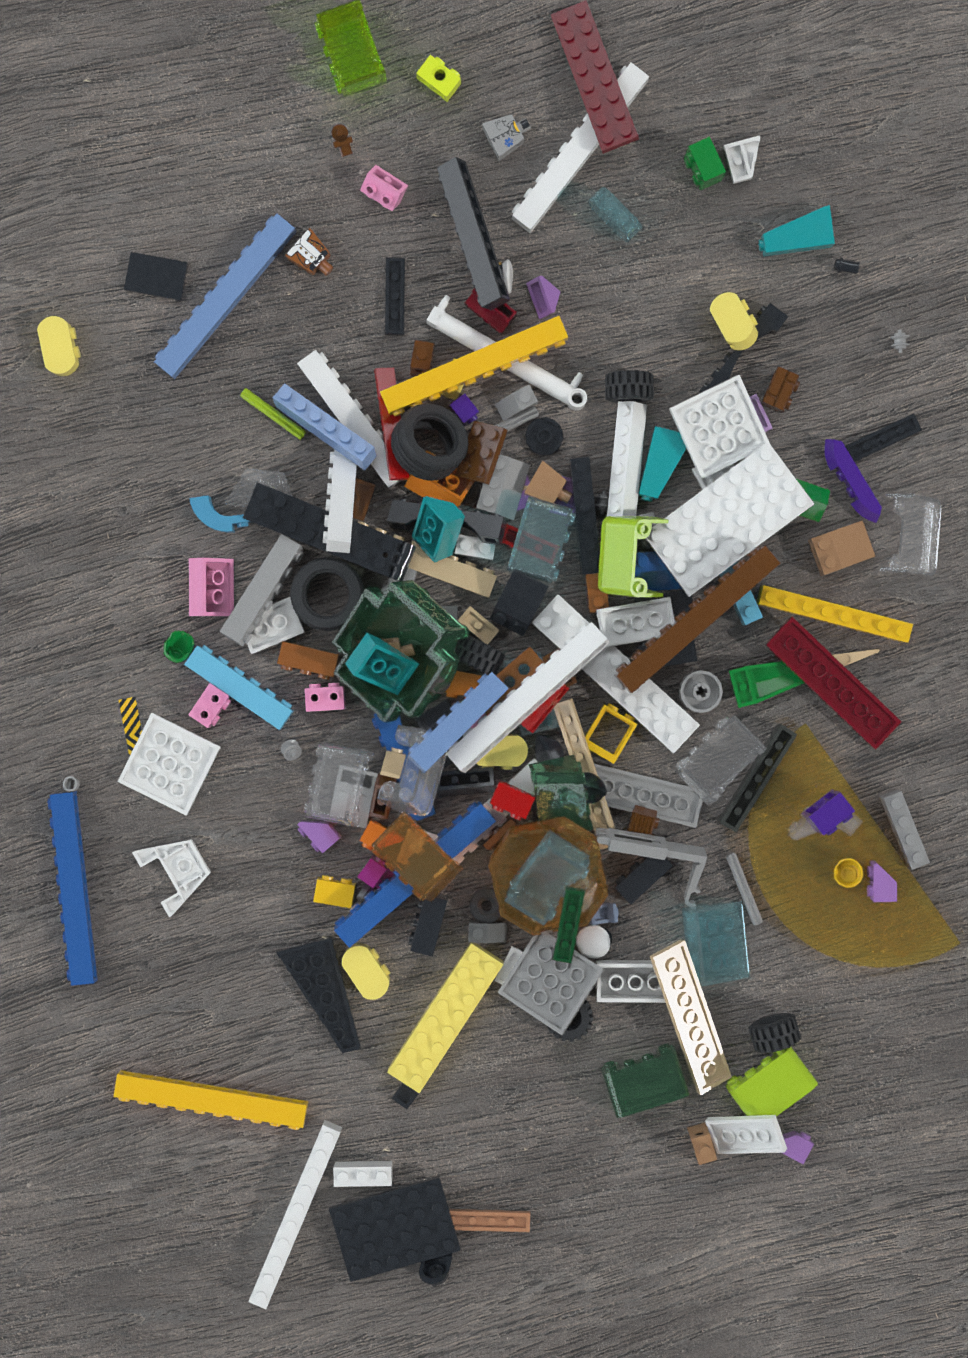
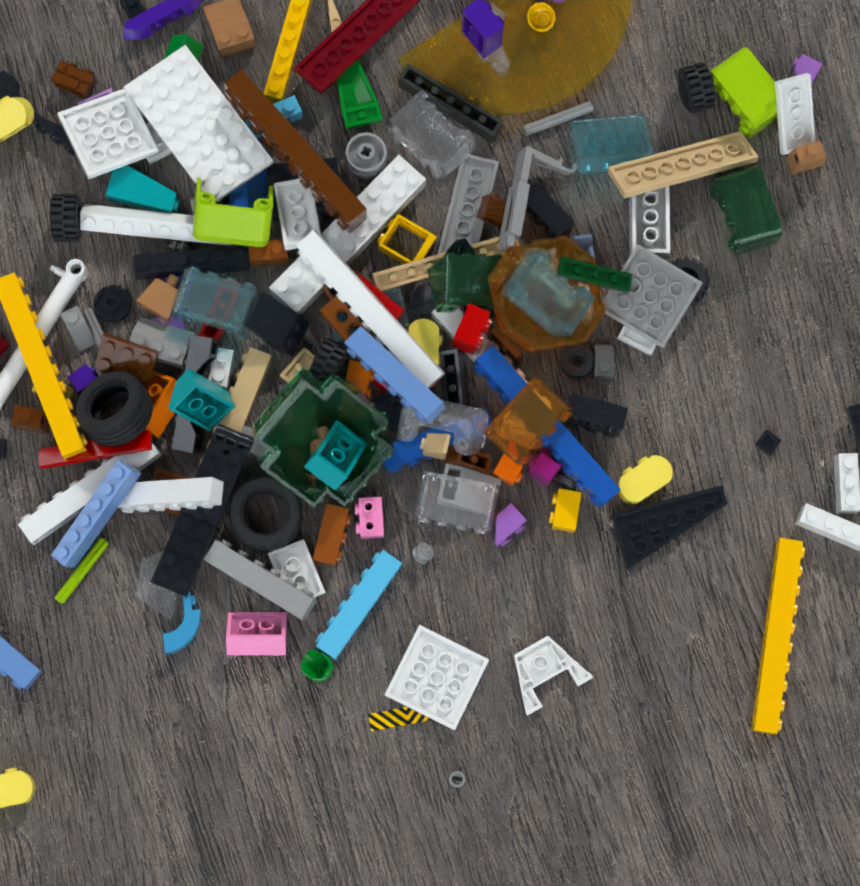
camera: 100 degrees left, 10 degrees down
(73, 888) = (564, 776): blue brick -> none
(210, 705) = (375, 636): bright pink brick -> none
(445, 1016) = (688, 401): light yellow brick -> none
(594, 941) = (611, 255): white piece -> none

